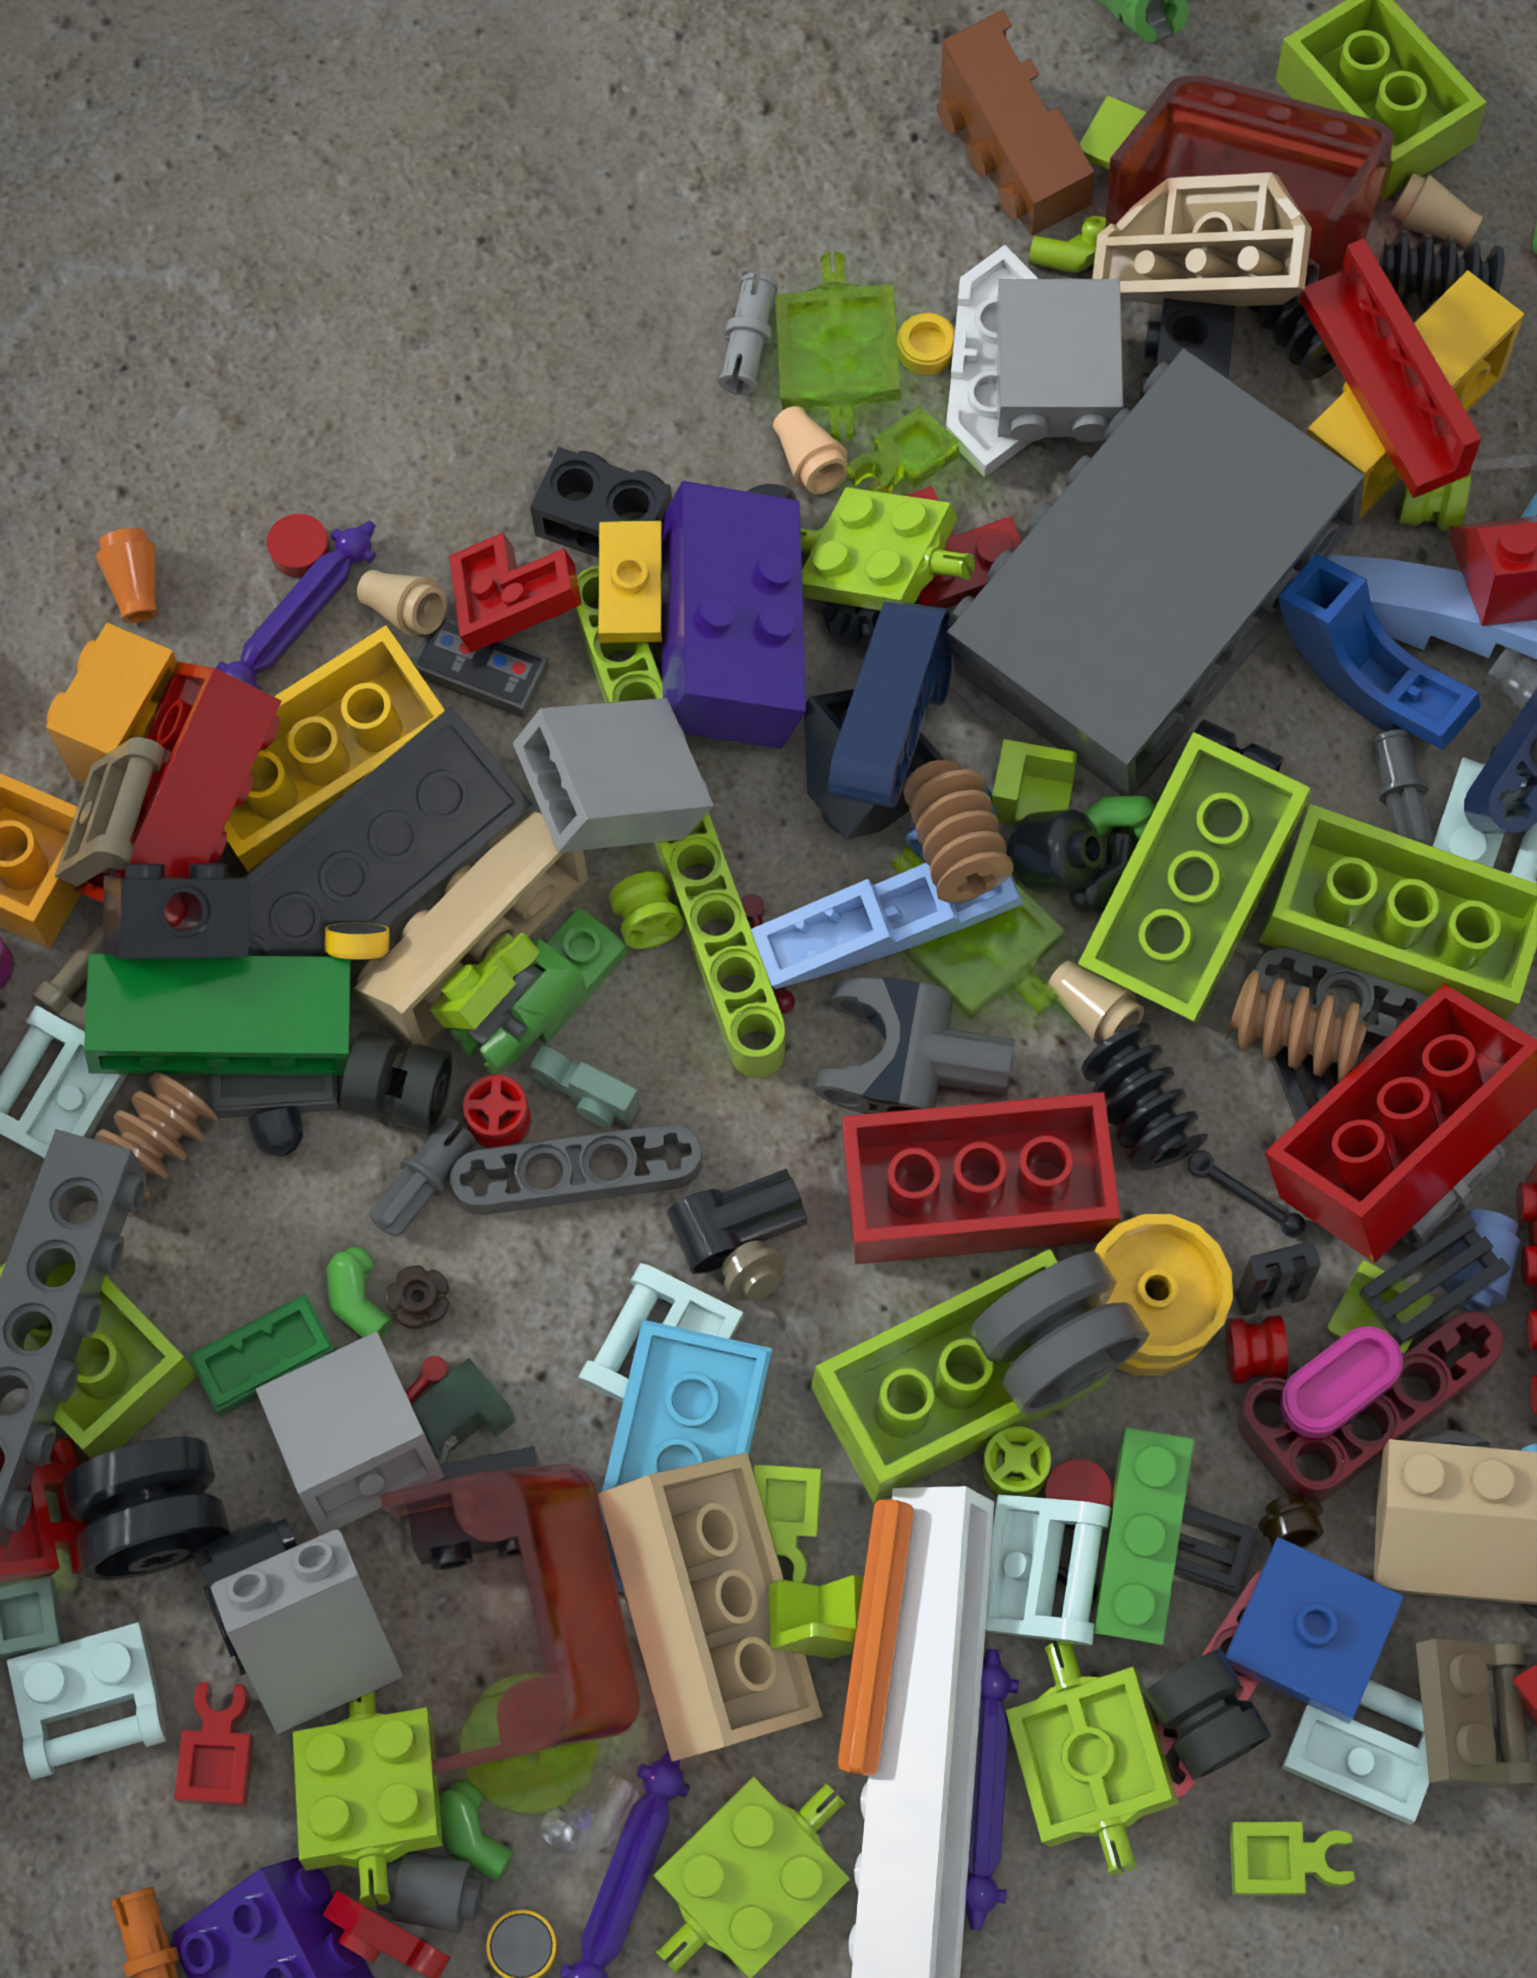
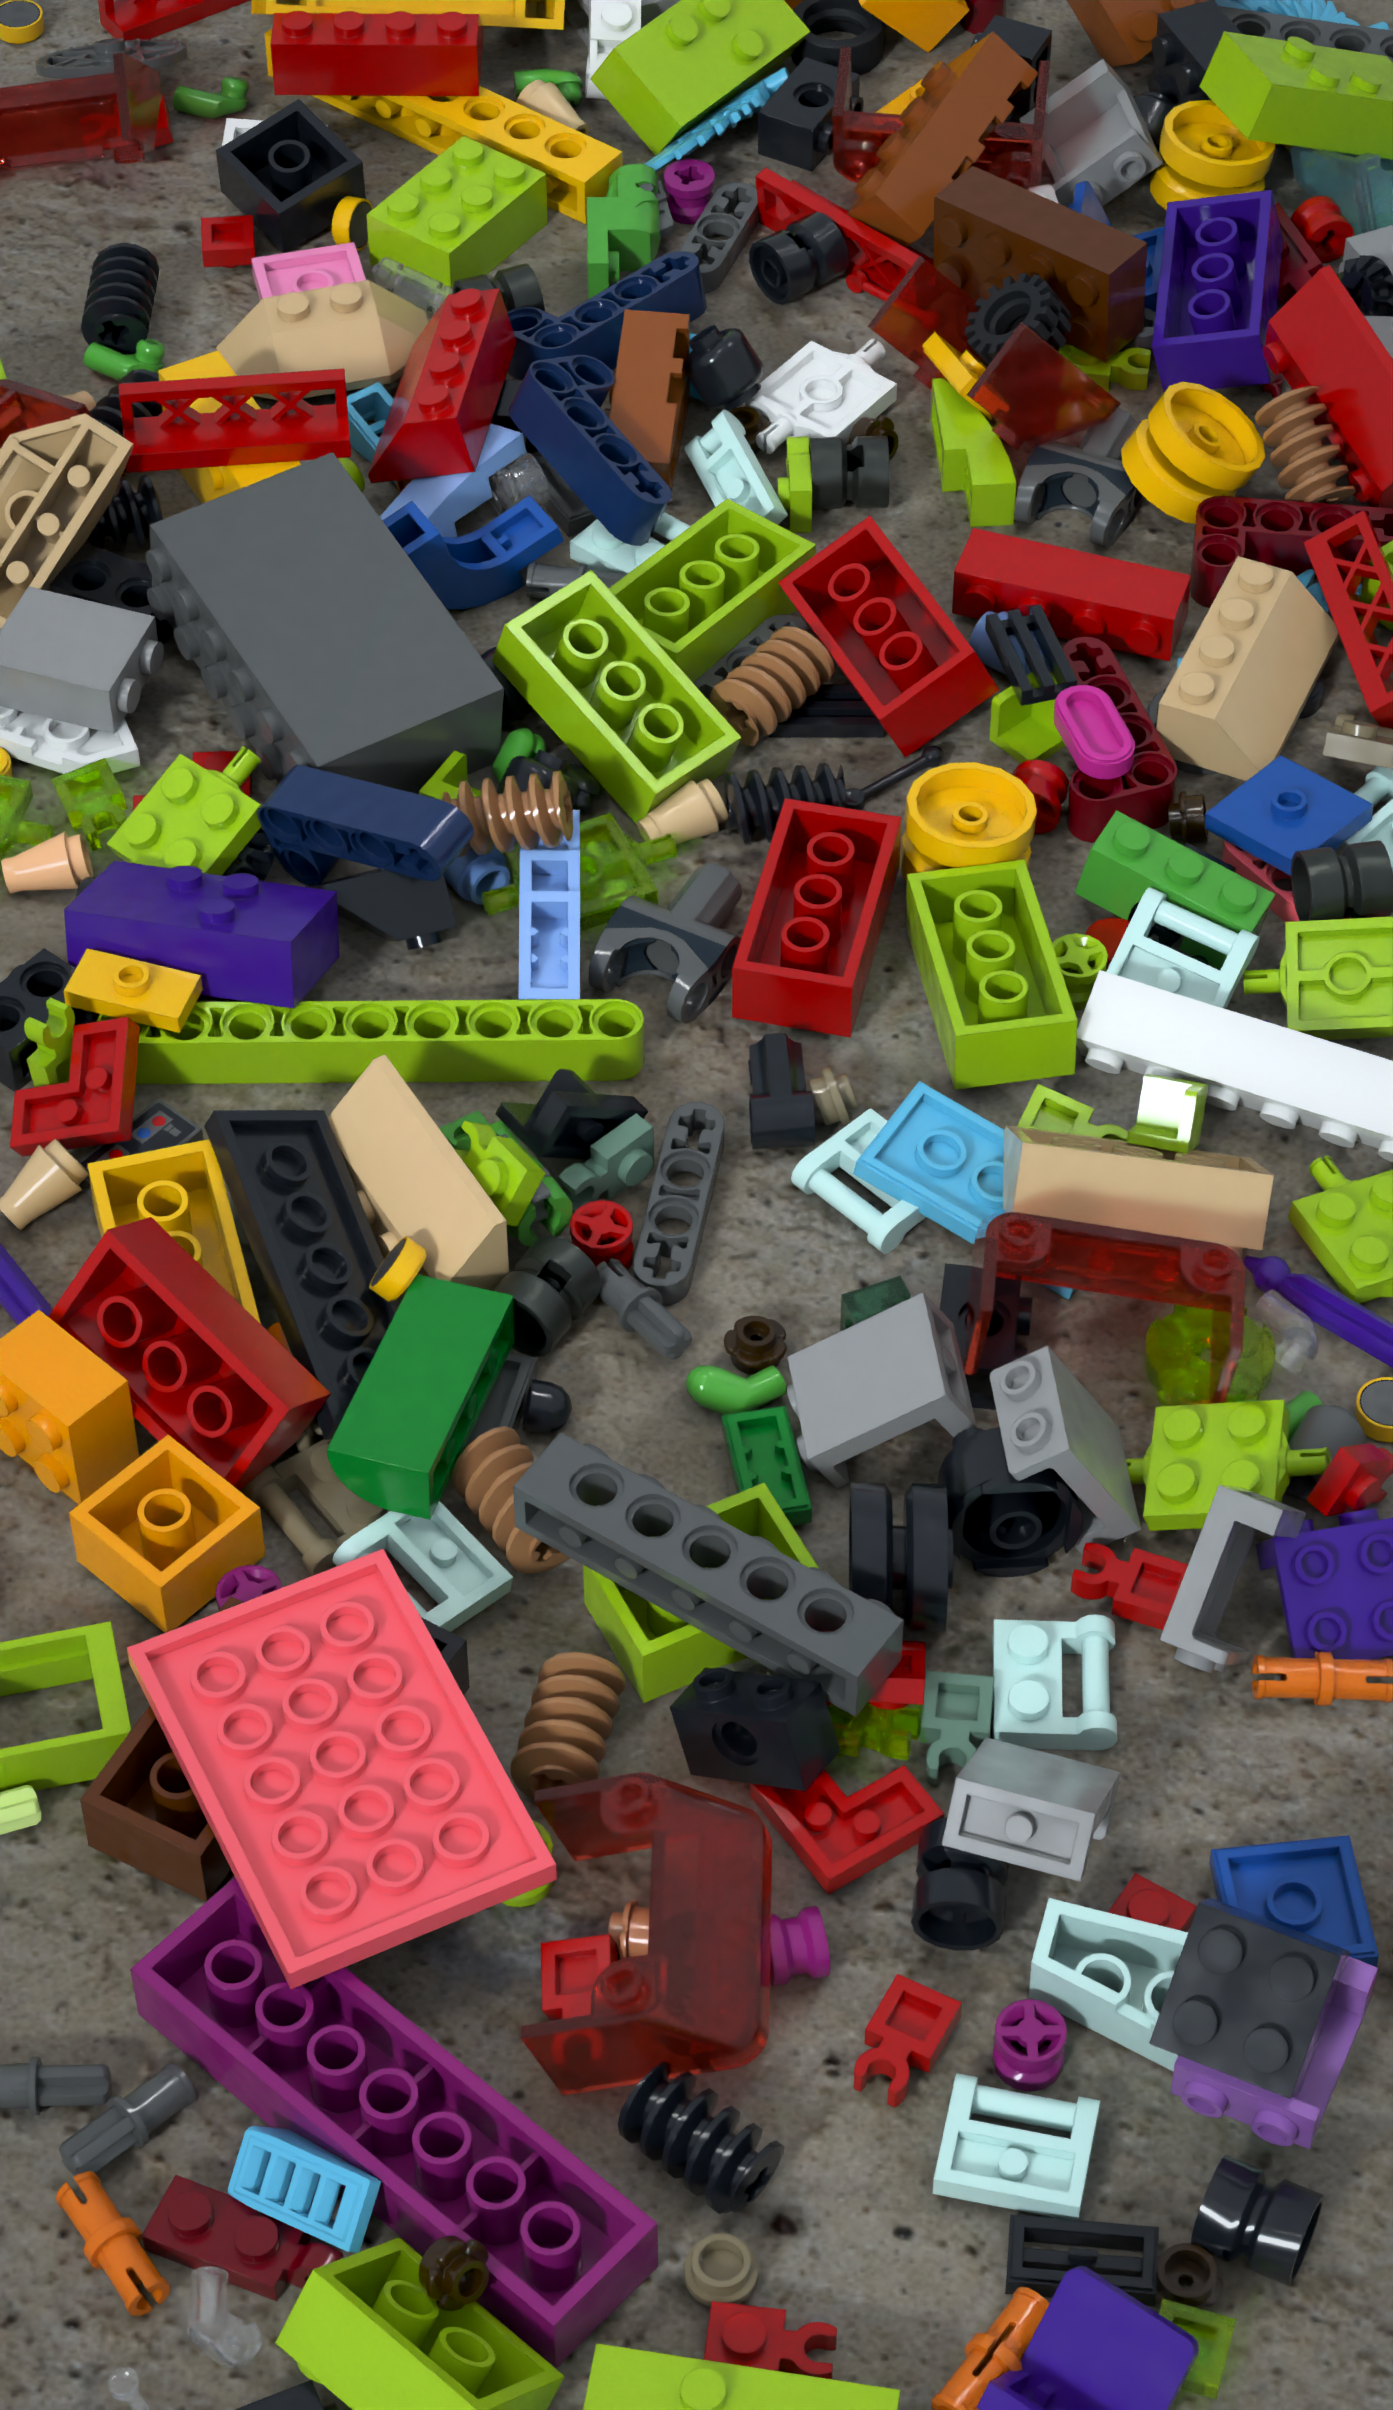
camera: 75 degrees left, 20 degrees down
(109, 811) = (183, 1406): dark tan plate -> none
(181, 1833) = (1214, 1573): none -> light grey panel
(213, 924) = (325, 1359): black brick -> none
(545, 537) = (54, 1040): none -> lime plate
(610, 1028) = (567, 1117): none -> black panel
(612, 774) = (341, 1015): light grey brick -> none
(646, 910) = (454, 1083): lime wheel -> none
(875, 1637) = (1206, 1068): orange axle -> none
(1059, 1332) = (1003, 844): dark grey wheel -> none
(1290, 1270) = (988, 727): black tile -> none

